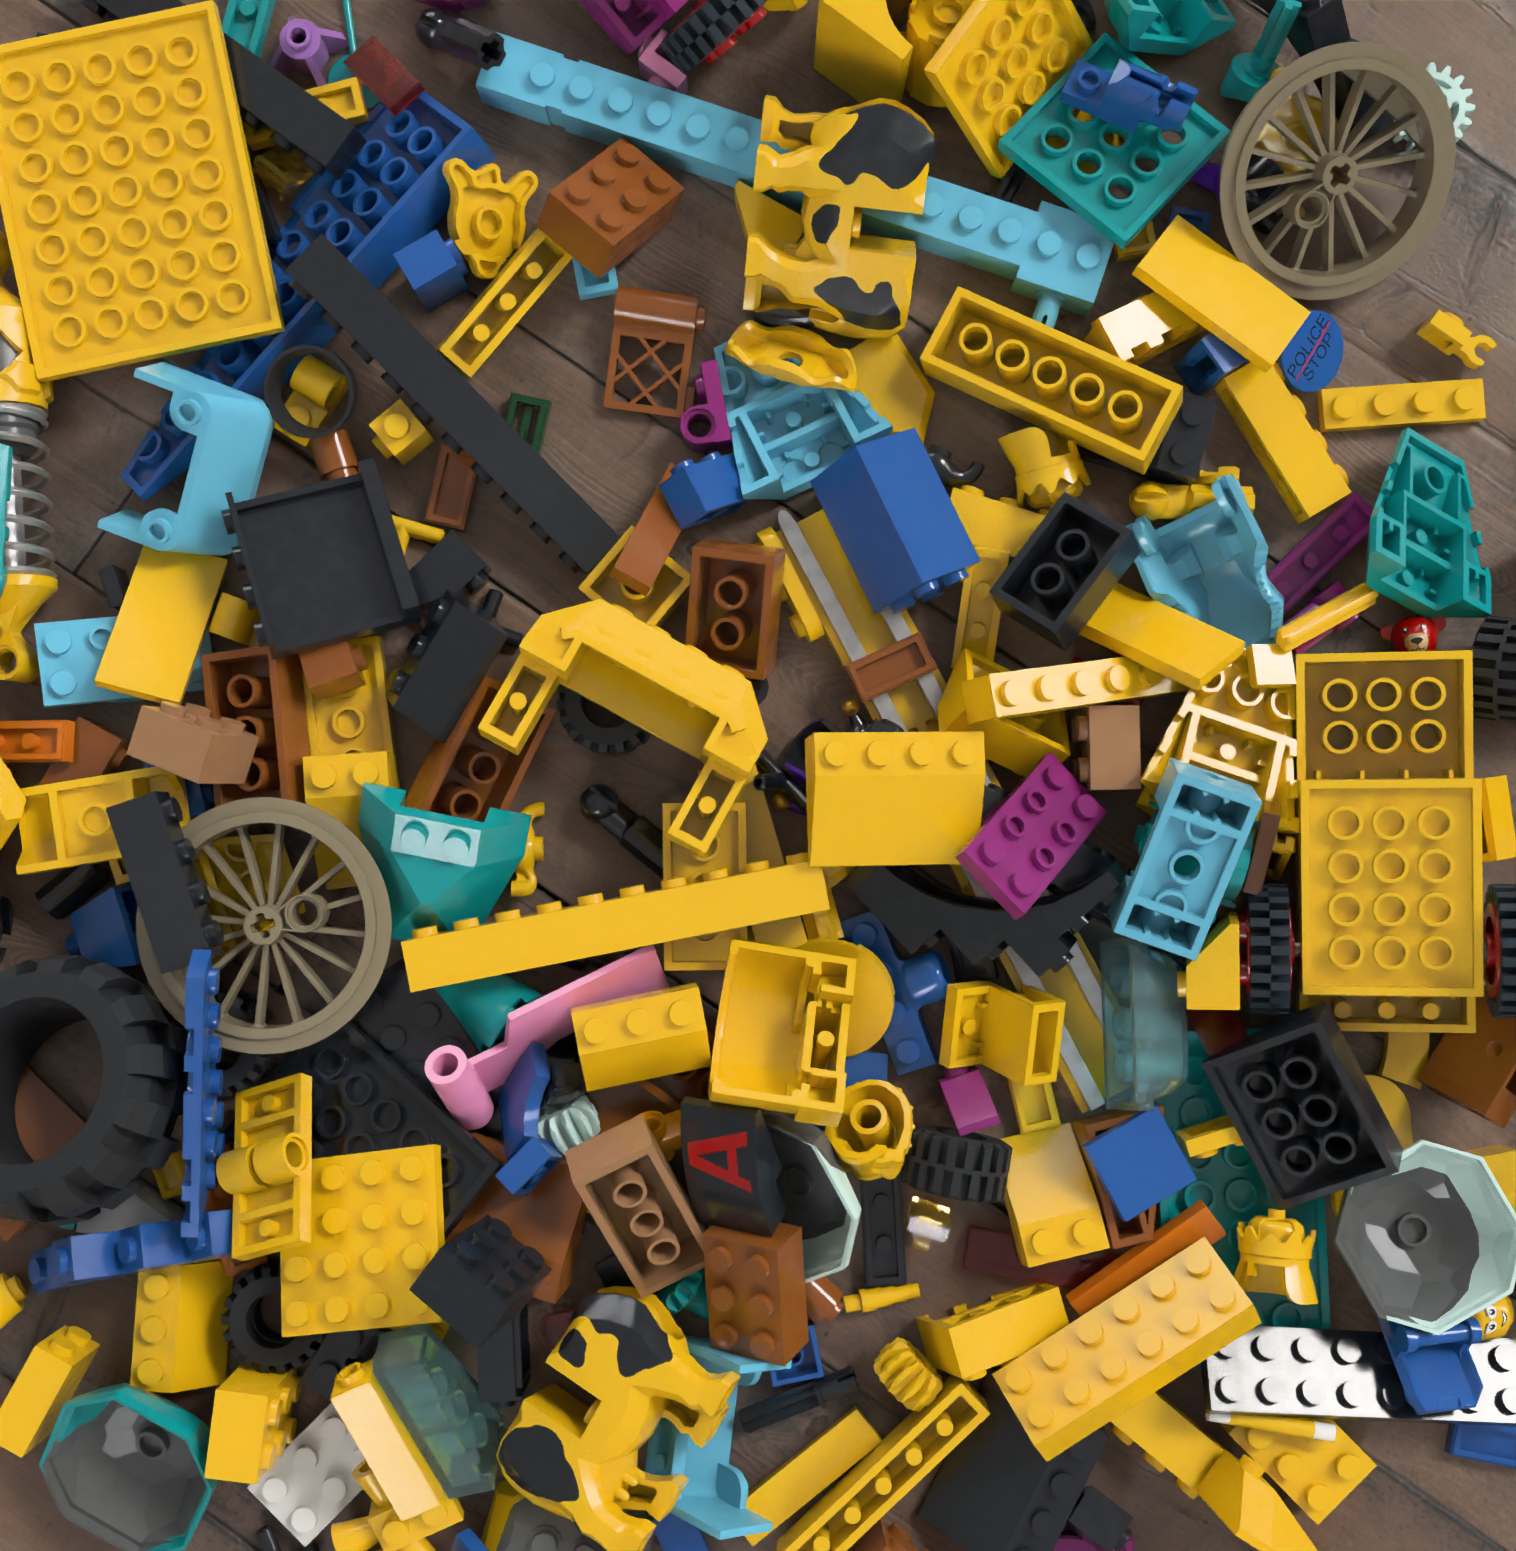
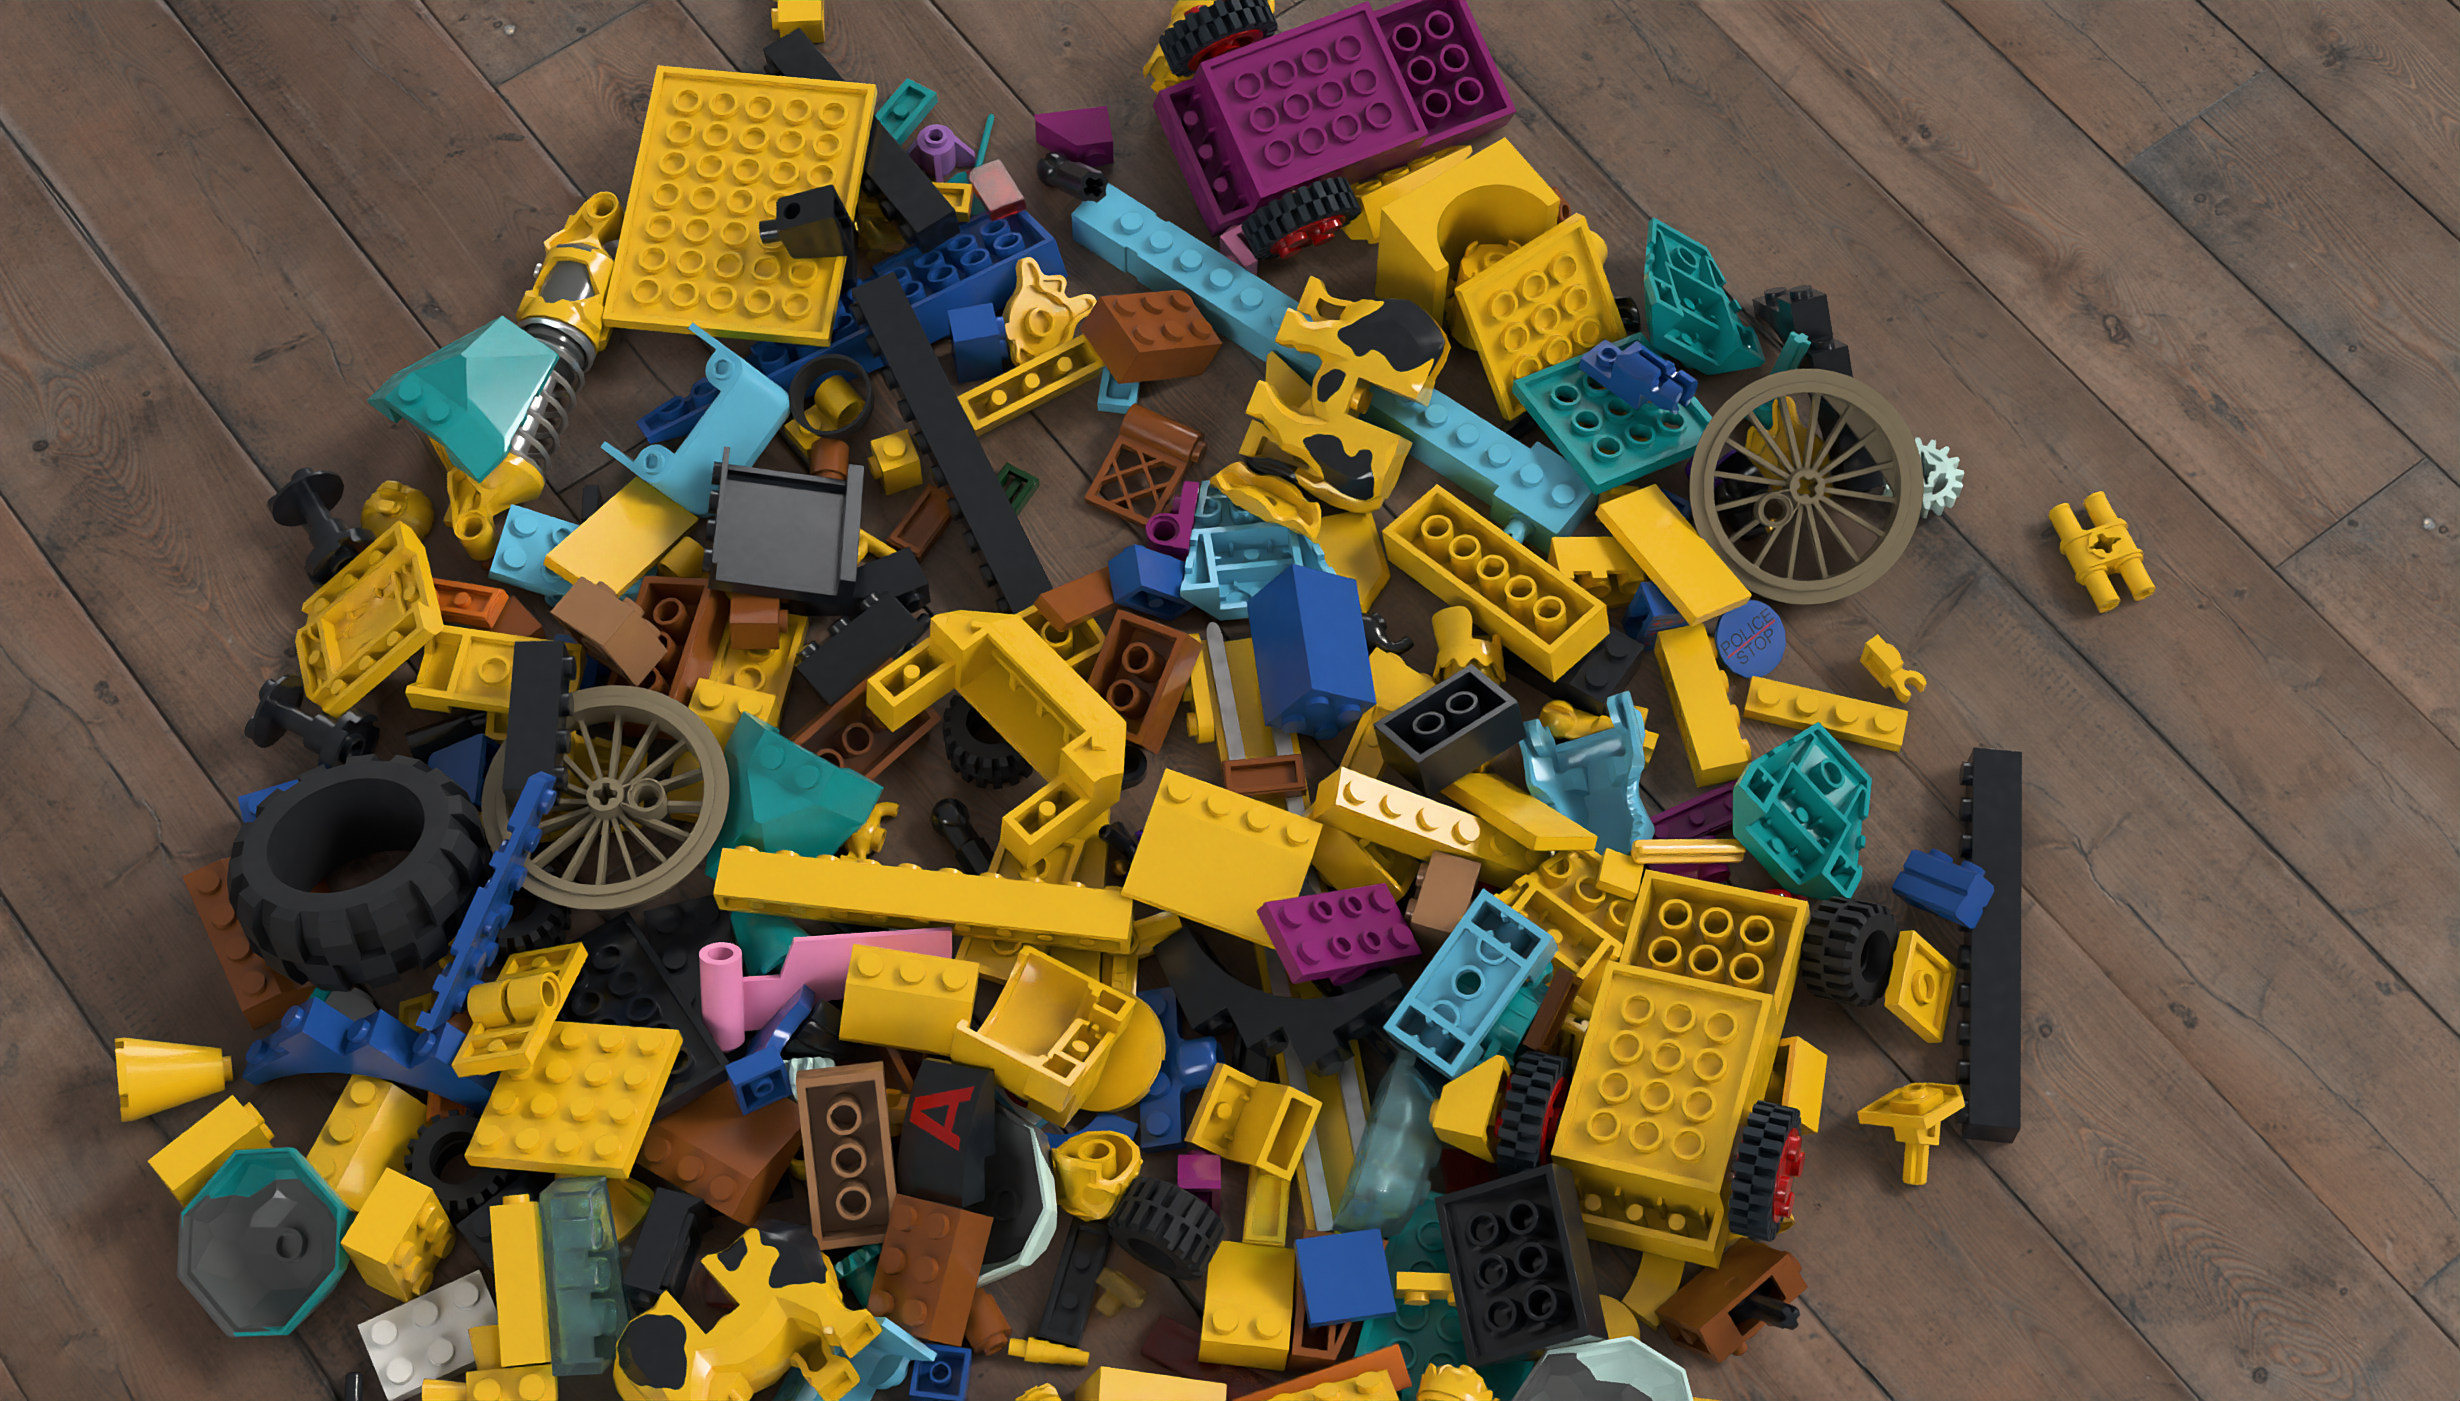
camera: 25 degrees right, 25 degrees down
(212, 205) = (811, 225): none -> black torso
(481, 1279) = (678, 1136): black brick -> none

